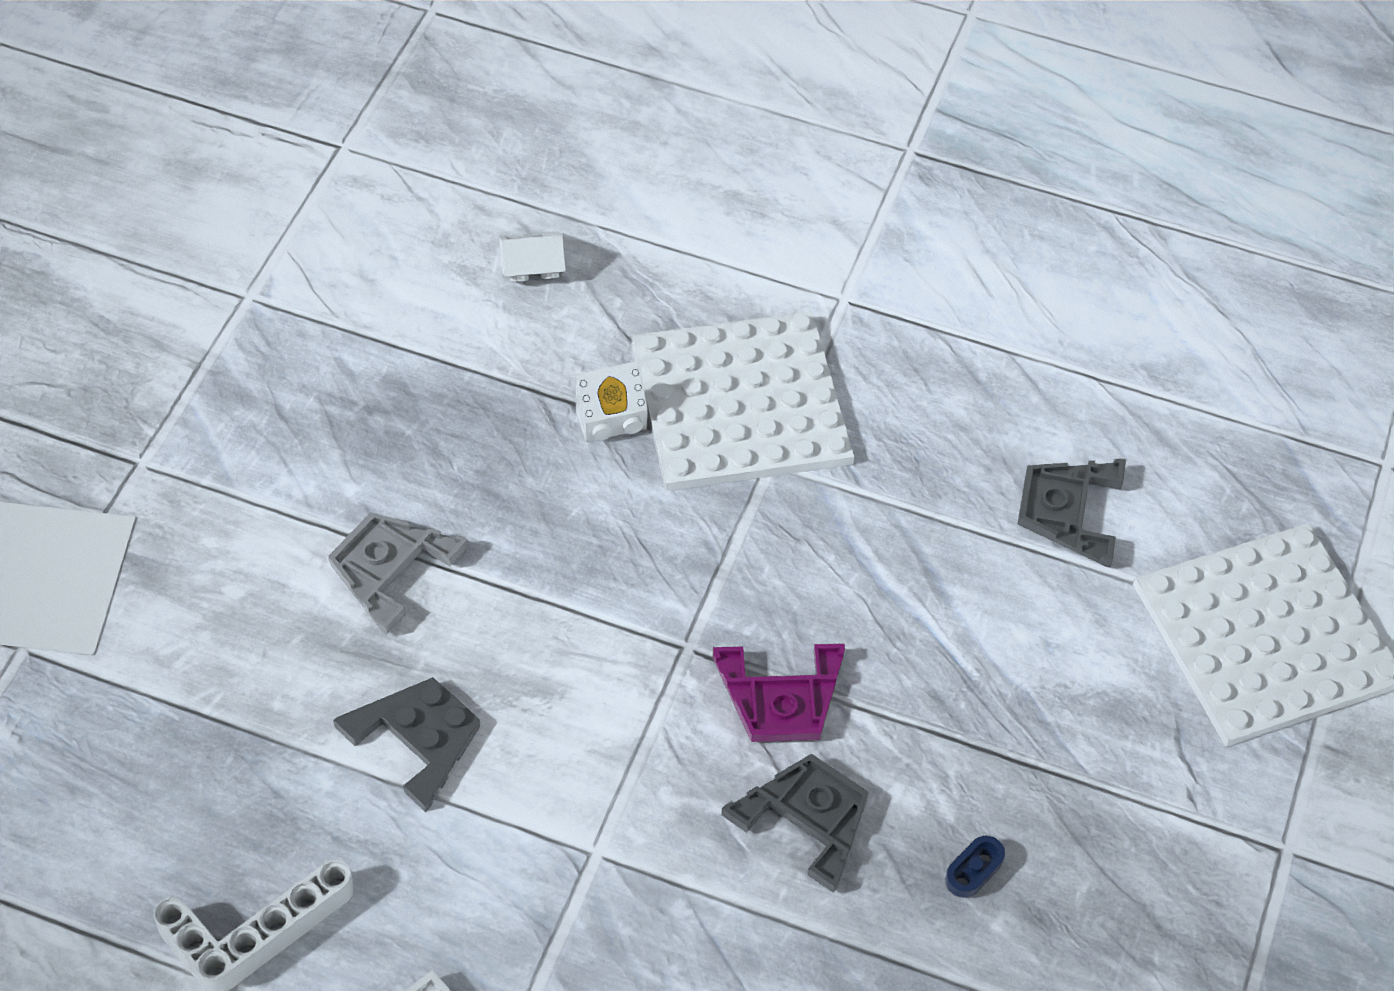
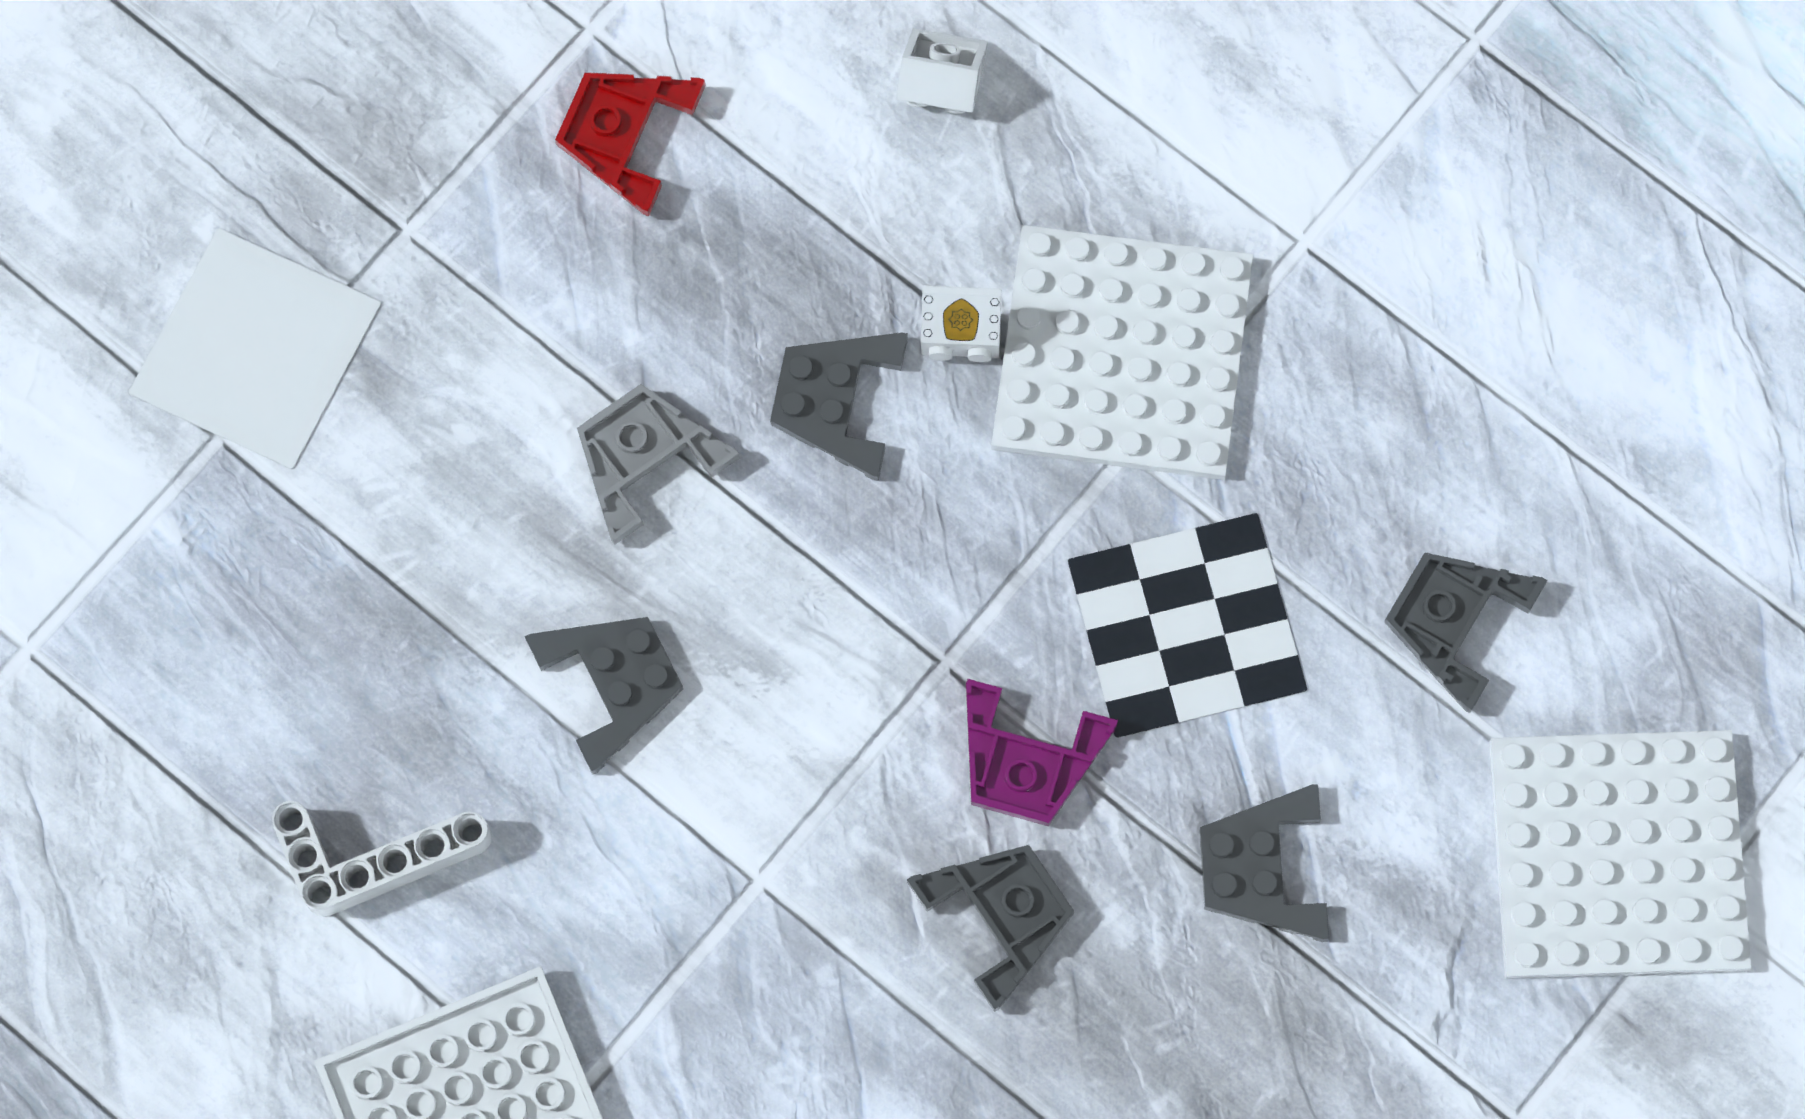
camera: 25 degrees right, 20 degrees up
(284, 347) = (609, 121): none -> red wing
(516, 487) = (819, 392): none -> dark grey wing
(867, 569) = (1187, 625): none -> sticker
(973, 868) = (1157, 1034): dark blue plate -> none
(990, 726) = (1245, 865): none -> dark grey wing

